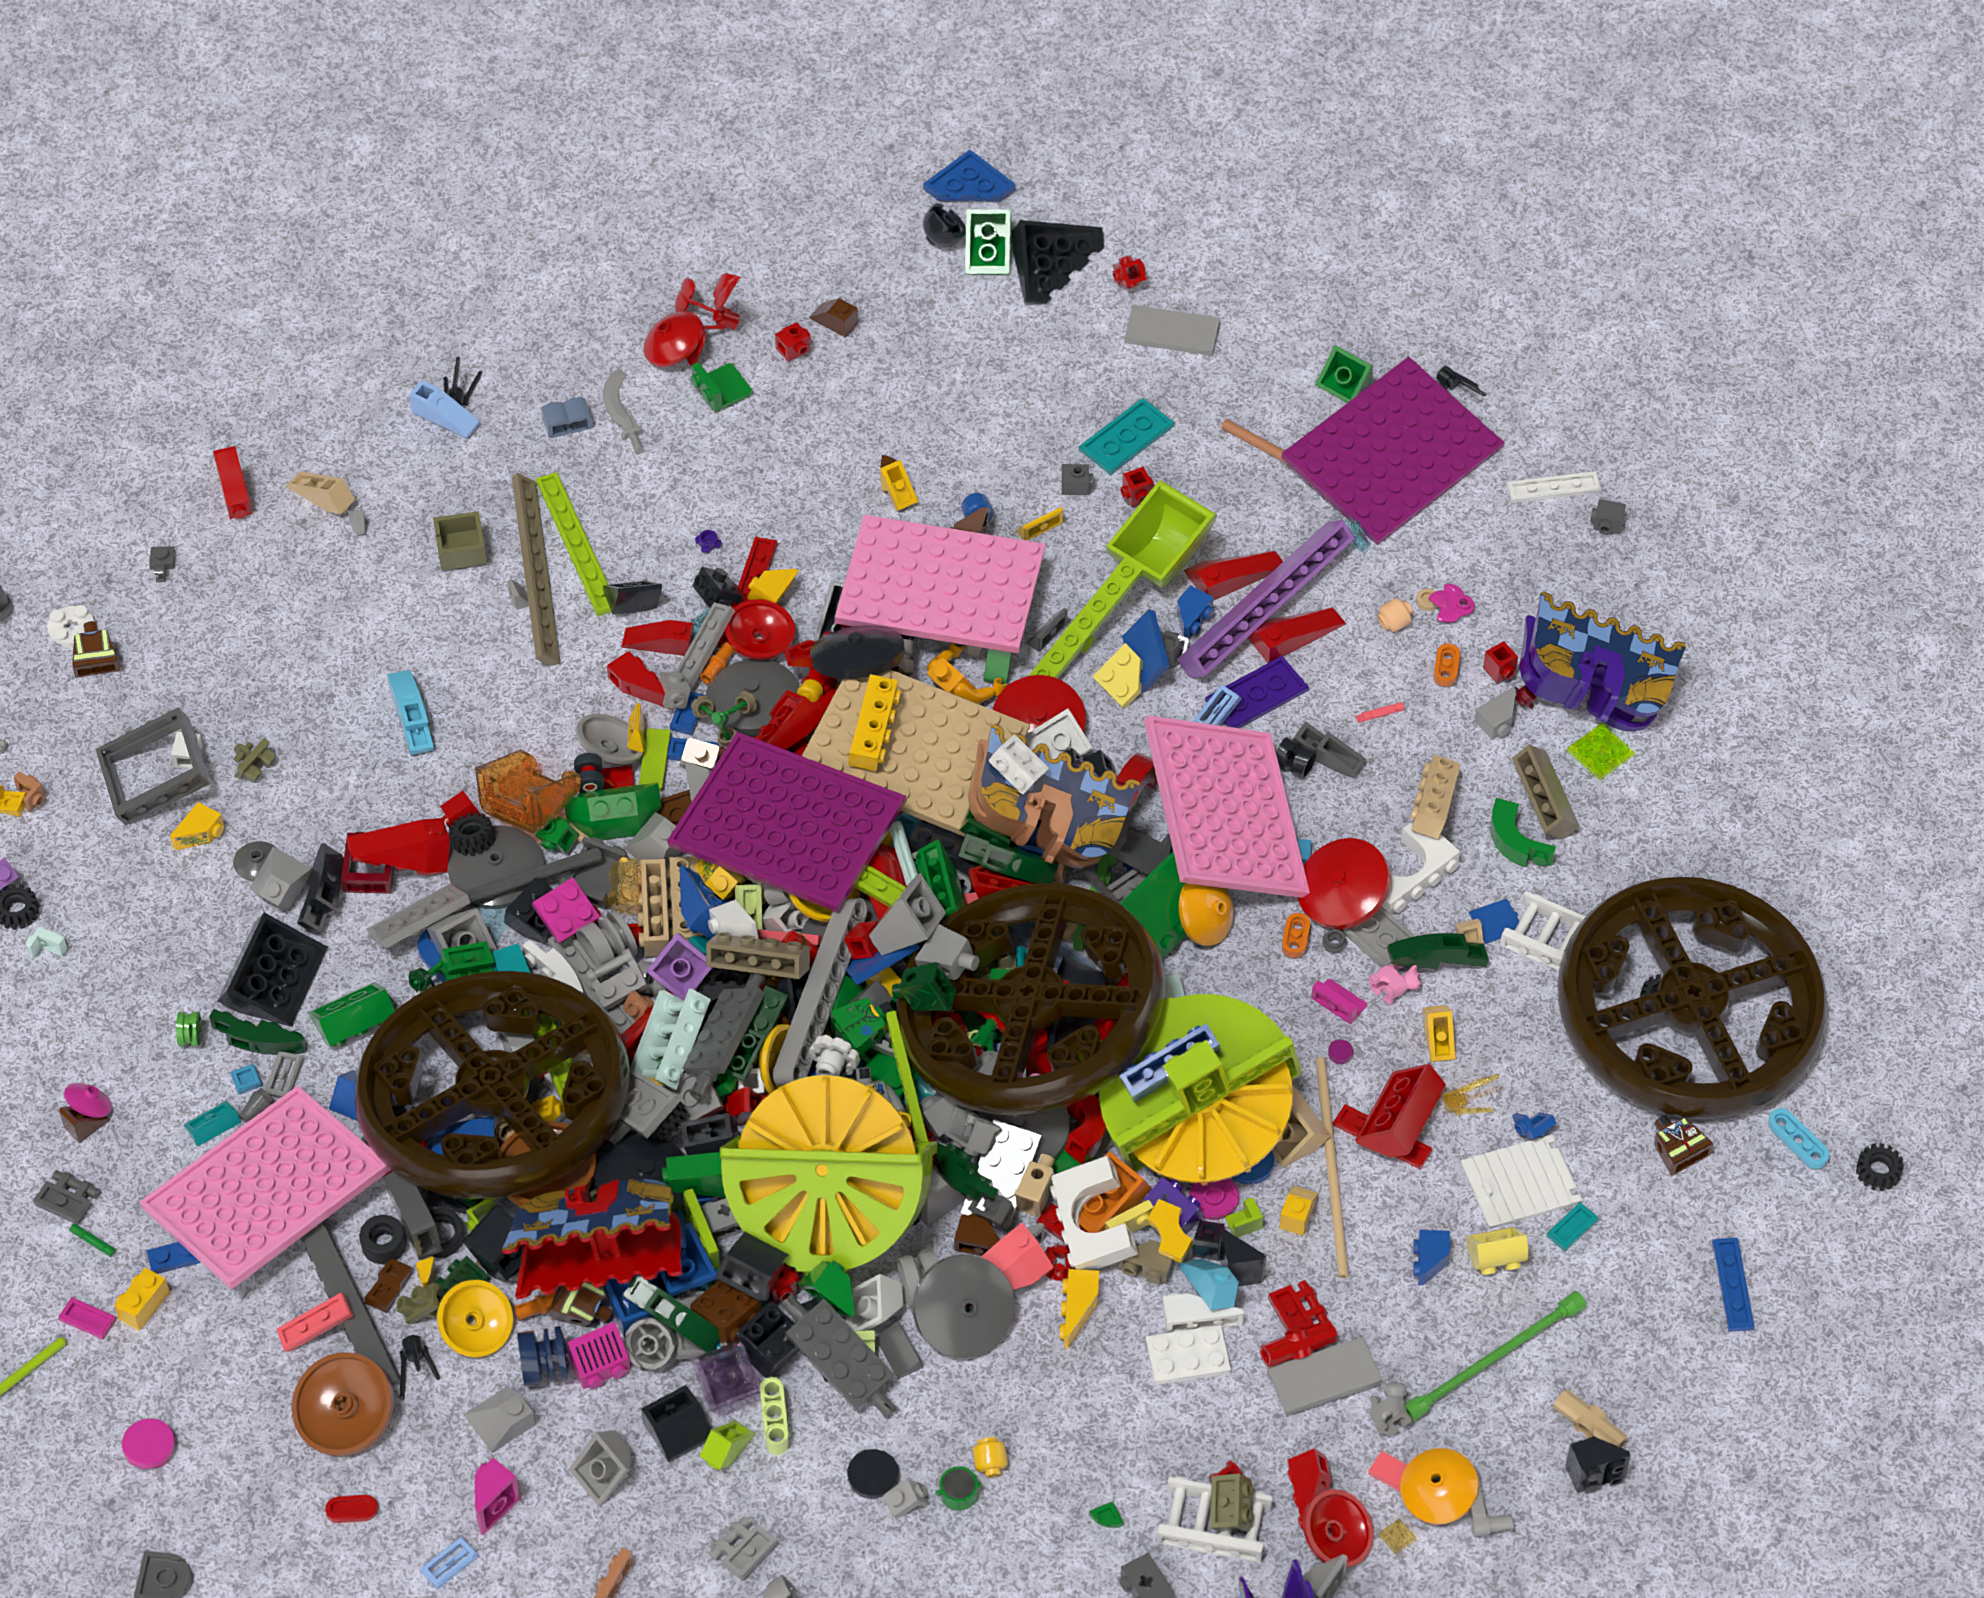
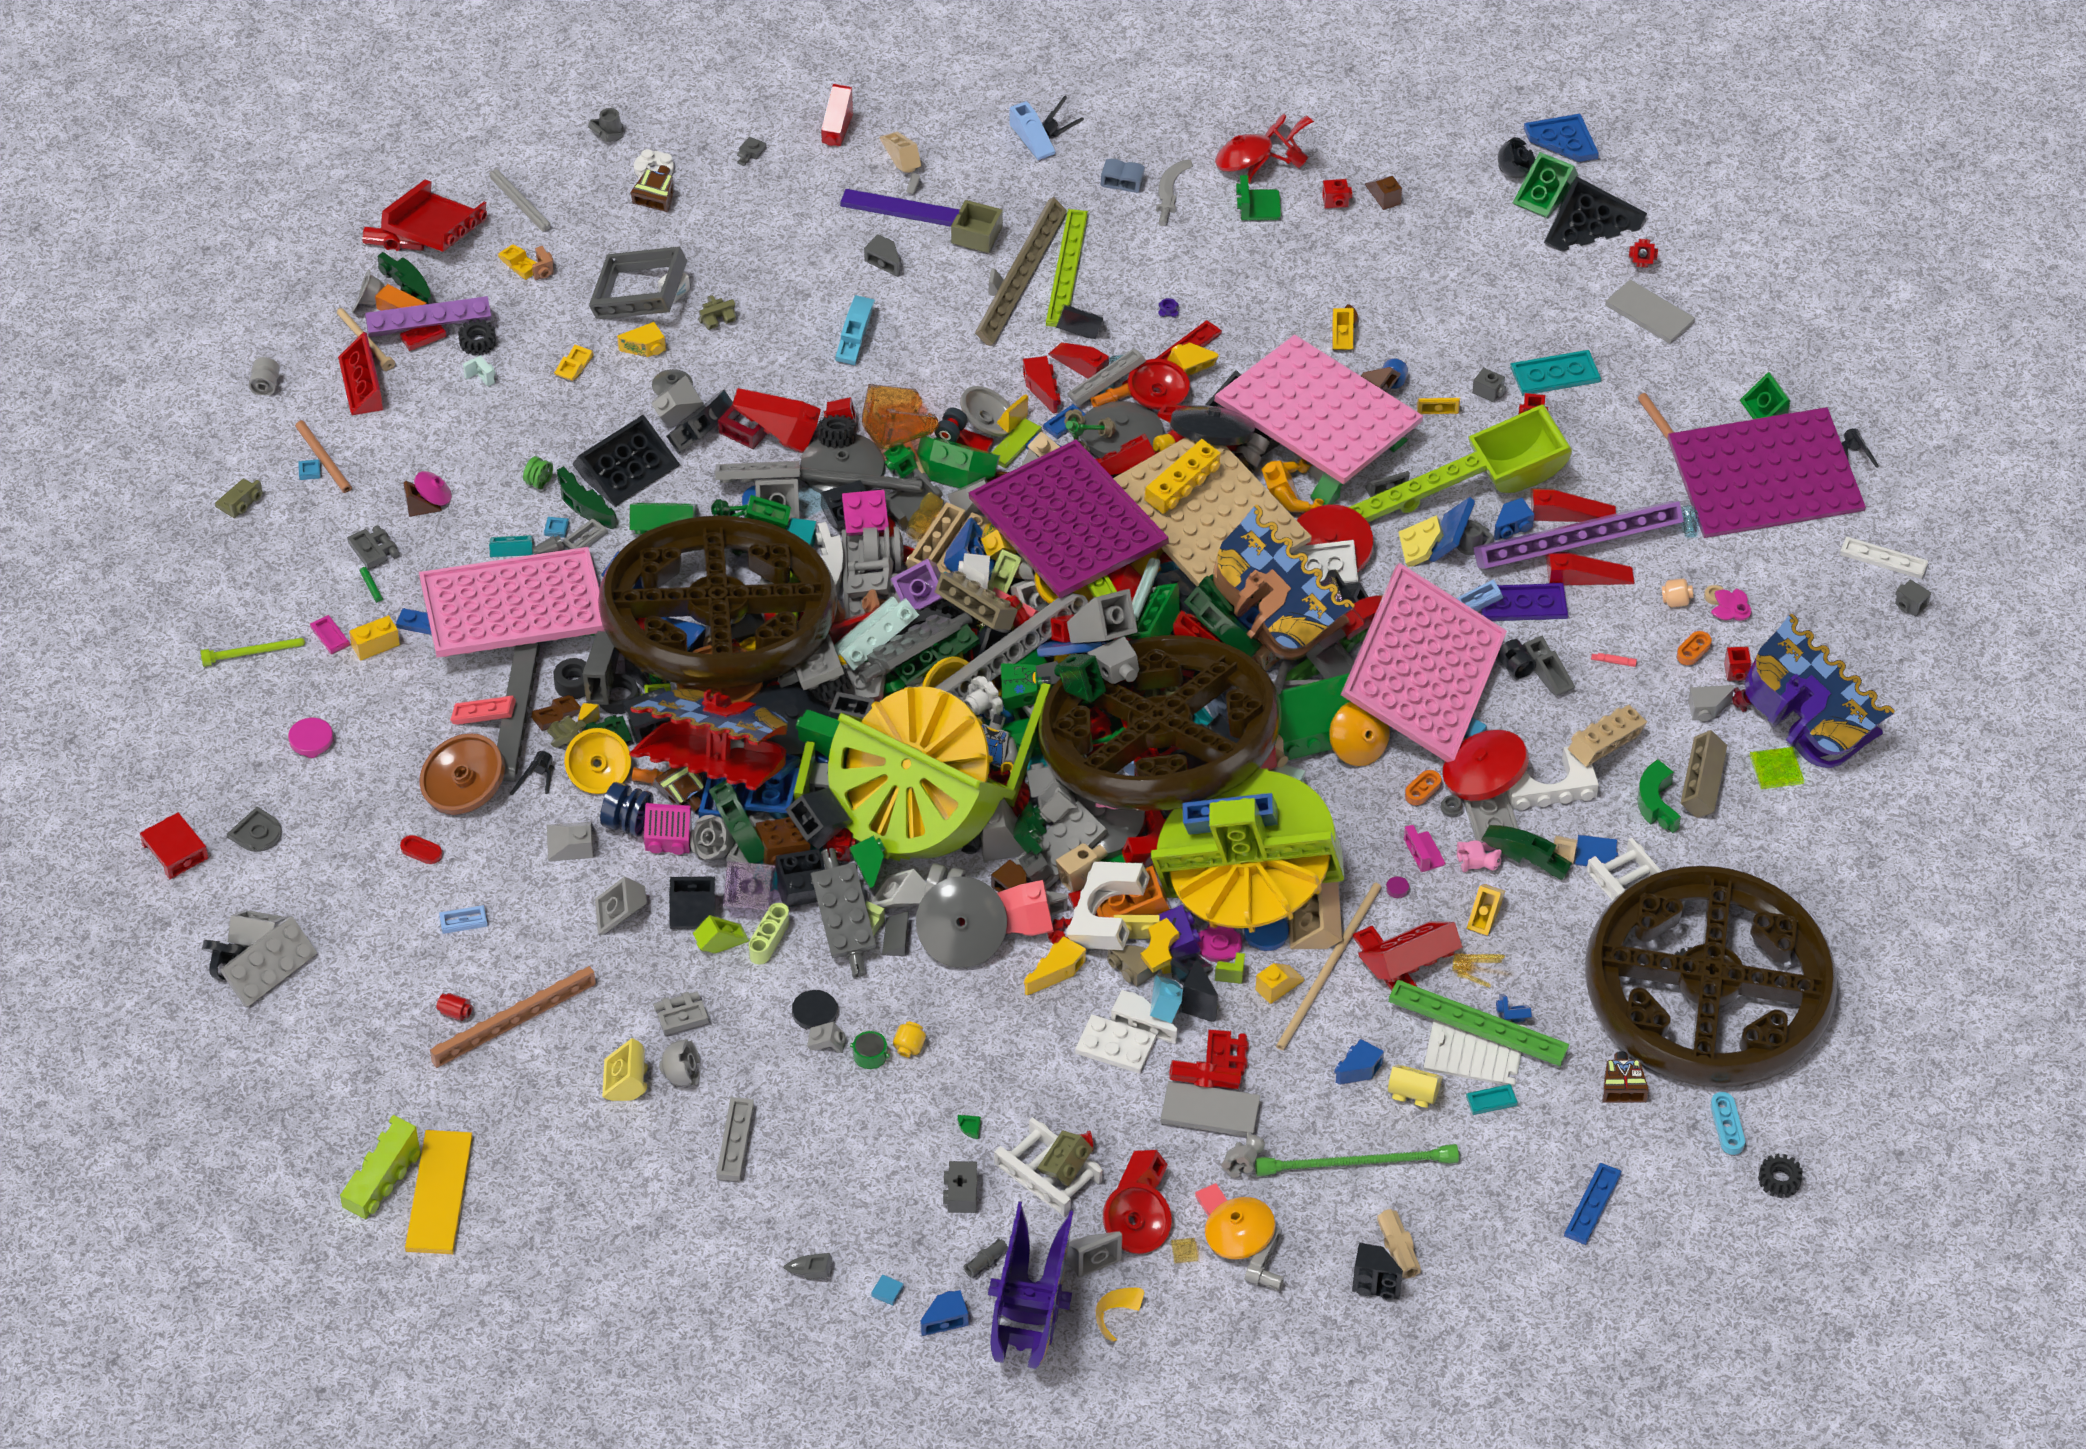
camera: 30 degrees right, 5 degrees down
(138, 886) = (574, 363): none -> yellow slope
(362, 555) = (898, 207): none -> dark purple tile
(383, 615) = (882, 254): none -> dark grey slope
(494, 1493) = (521, 885): dark pink slope -> none
(675, 689) = (1061, 398): light grey bracket -> none
(716, 585) = (1149, 339): black bracket -> none
(1018, 764) = (1258, 542): white bracket -> none
(1512, 1155) = (1479, 1023): none -> bright green plate

